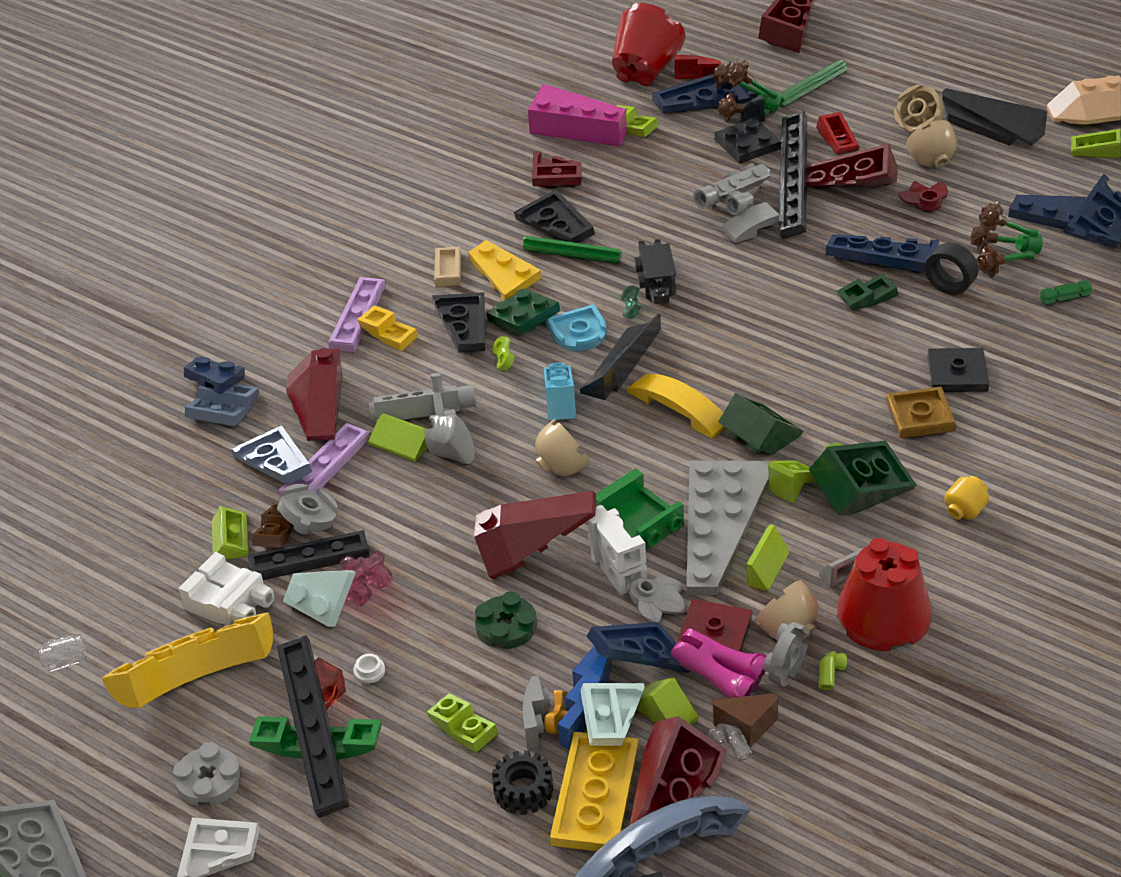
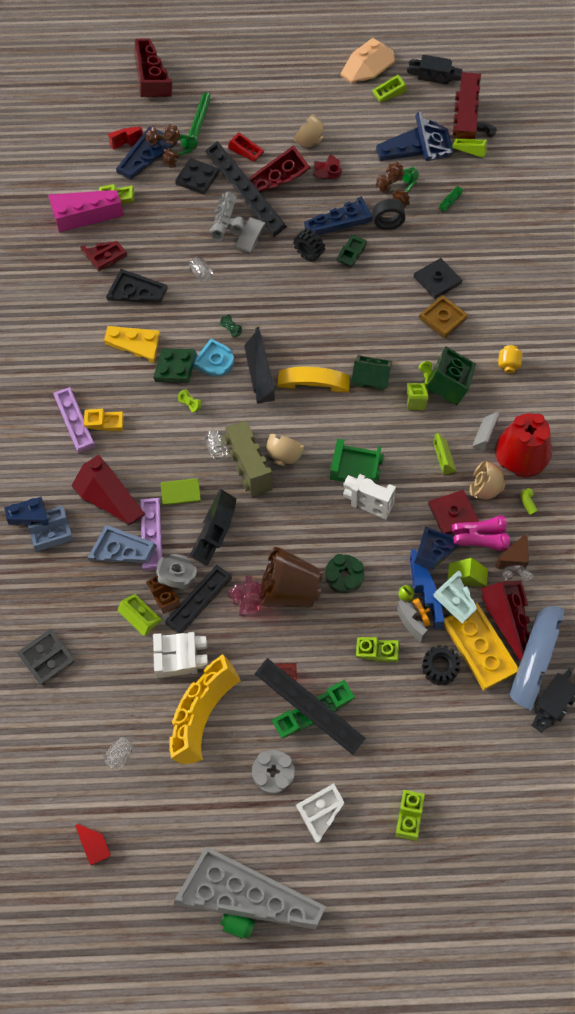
camera: 40 degrees left, 20 degrees up
(90, 519) = (45, 656): none -> dark grey slope
(320, 594) = (235, 622): light aqua wing -> none
(369, 668) = (300, 650): white plate -> none
(396, 487) = (215, 528): none -> black slope
(418, 579) = (289, 581): none -> reddish brown cone
(426, 402) = (177, 459): light grey piece -> none
(447, 266) = (98, 356): tan tile -> none
(450, 439) = (217, 476): light grey hair -> none
(464, 319) = (145, 389): black wing -> none
(487, 410) = (216, 444): none -> clear brick
(507, 442) = (249, 459): none -> olive wedge
(520, 528) = (316, 513): dark red wedge -> none
(559, 392) = (245, 408): medium azure slope -> none
(561, 676) = (403, 595): none -> lime hinge
(572, 249) = (163, 306): green axle -> none
(645, 43) = (85, 134): red cone -> none
(652, 227) = (200, 269): none -> clear brick
(656, 271) = (227, 296): black hinge -> none
(657, 597) = (410, 511): light grey plate -> none
(719, 515) = (390, 428): light grey wing -> none
(753, 110) = (185, 154): black tile -> none
(787, 654) = (510, 506): light grey plate -> none
(810, 257) = (309, 245): none -> black tyre
(918, 107) = (284, 110): tan cylinder -> none
(994, 117) = (323, 97): black wedge -> none

